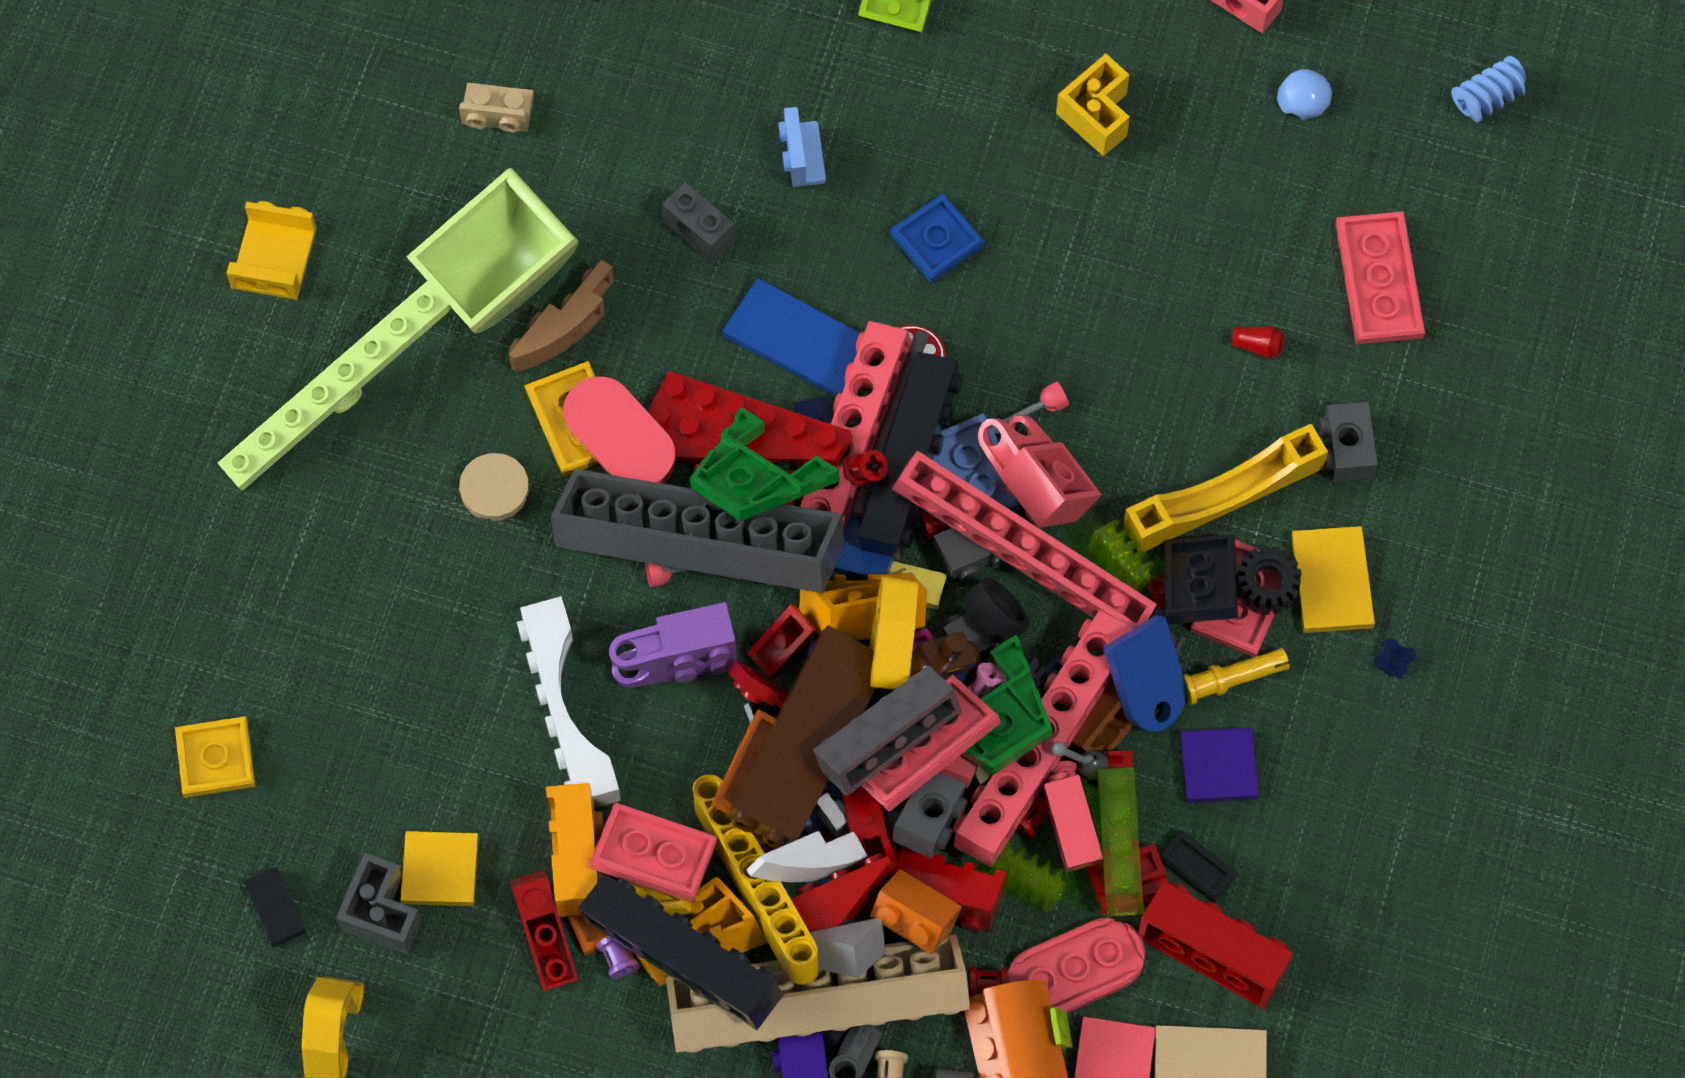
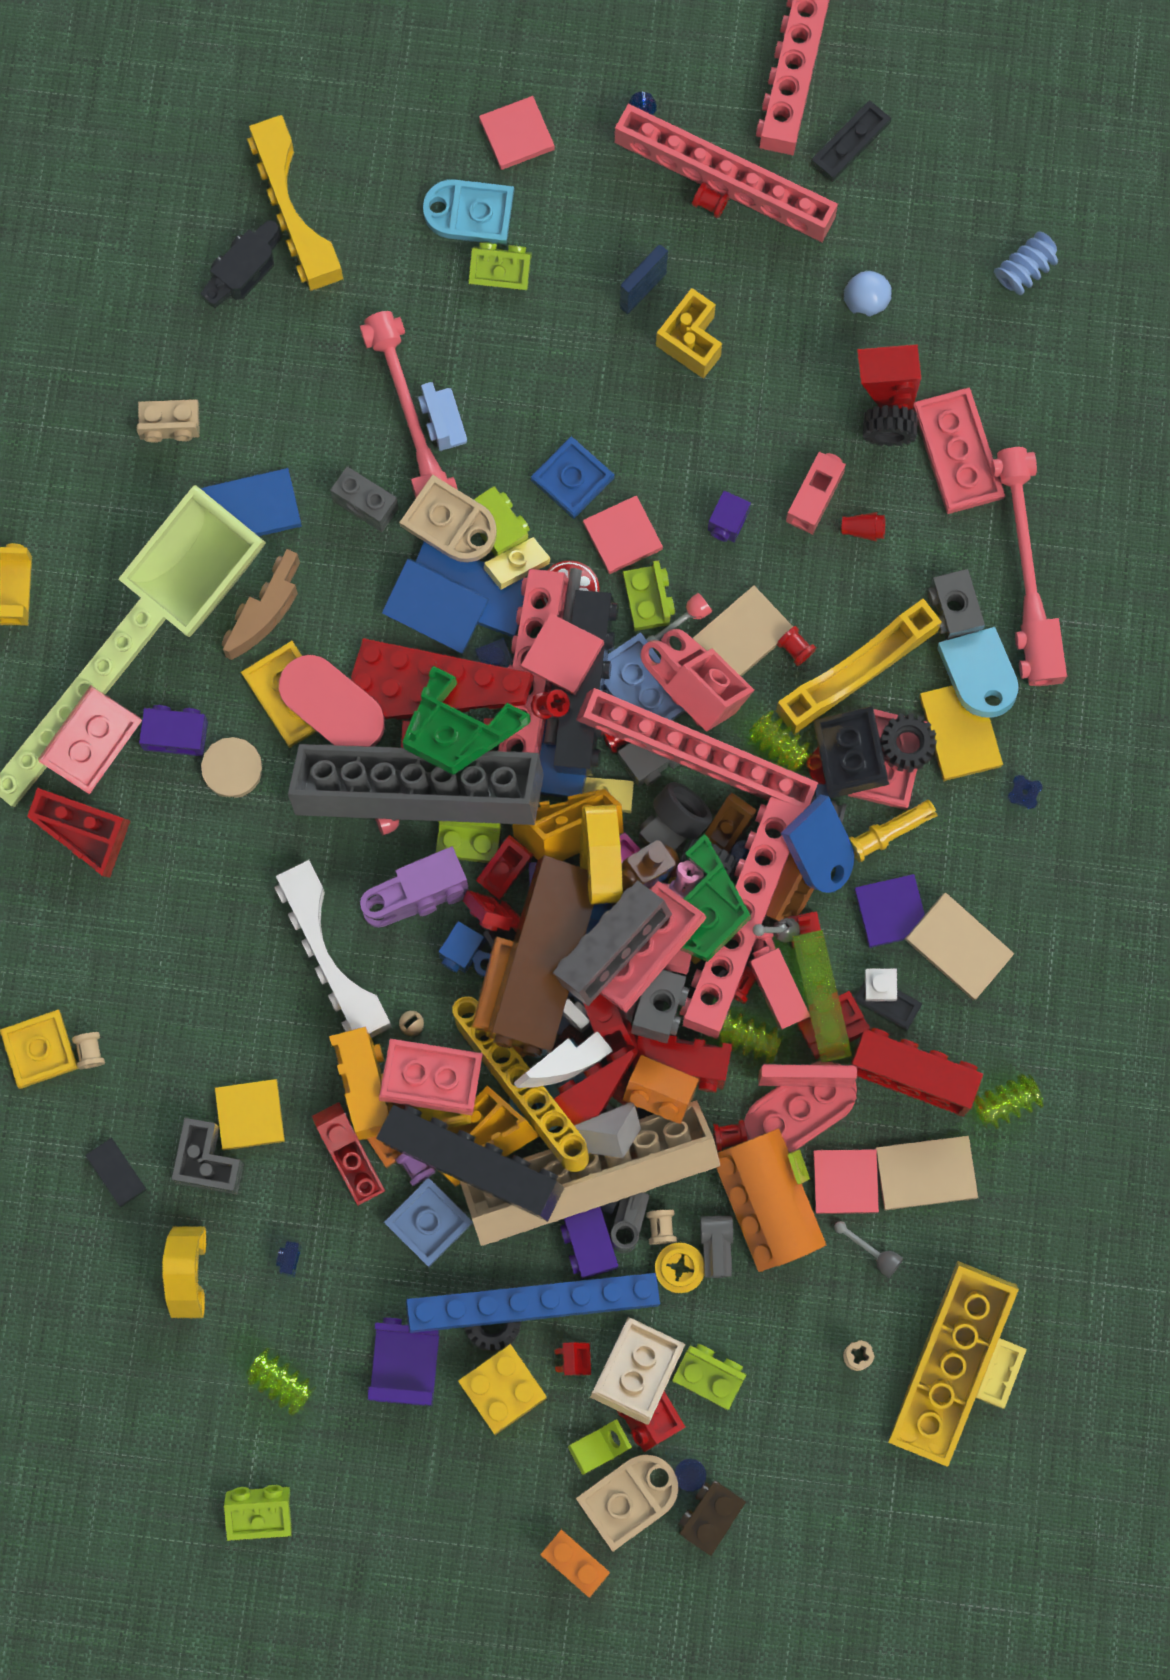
camera: 10 degrees left, 10 degrees up
(270, 766) = (88, 1050): none -> tan bush
(312, 520) = (83, 829): none -> red wedge
(340, 427) = (89, 739): none -> coral tile
(436, 436) = (173, 731): none -> dark purple brick
(453, 1034) = (288, 1258): none -> clear blue plate
(586, 208) = (260, 502): none -> blue tile
(621, 1022) = (428, 1222): none -> medium blue plate
(648, 802) = (416, 1027): none -> tan hinge
(718, 725) = (463, 949): none -> blue brick
(750, 604) = (469, 839): none -> lime bracket
(756, 348) = (435, 605): none -> blue tile
(776, 222) = (383, 334): none -> coral bar
(788, 256) = (449, 520): none -> tan tile
(842, 271) = (510, 529): none -> lime brick
(852, 317) = (516, 562): none -> light yellow plate
(889, 416) = (562, 654): none -> coral tile
(982, 307) = (622, 535): none -> coral tile
(998, 378) = (648, 597): none -> lime bracket
(1050, 633) = (730, 823): none -> reddish brown slope
(1053, 38) = (643, 279): none -> dark blue tile
(1088, 925) = (807, 1075): none -> coral tile
(1104, 432) = (745, 631): none -> tan tile
(1105, 306) = (728, 517): none -> dark purple brick
(1158, 457) = (796, 646): none -> red bush
(1192, 843) = (880, 984): none -> white plate
(1209, 295) = (816, 492): none -> coral brick
(1290, 816) = (959, 946): none -> tan tile
(1305, 235) = (890, 426): none -> black tyre
(1313, 179) = (891, 374): none -> red wedge
(1318, 997) = (1008, 1101): none -> clear neon green piece
(1364, 514) = (979, 670): none -> medium azure tile
(1439, 489) = (1038, 635): none -> coral bar

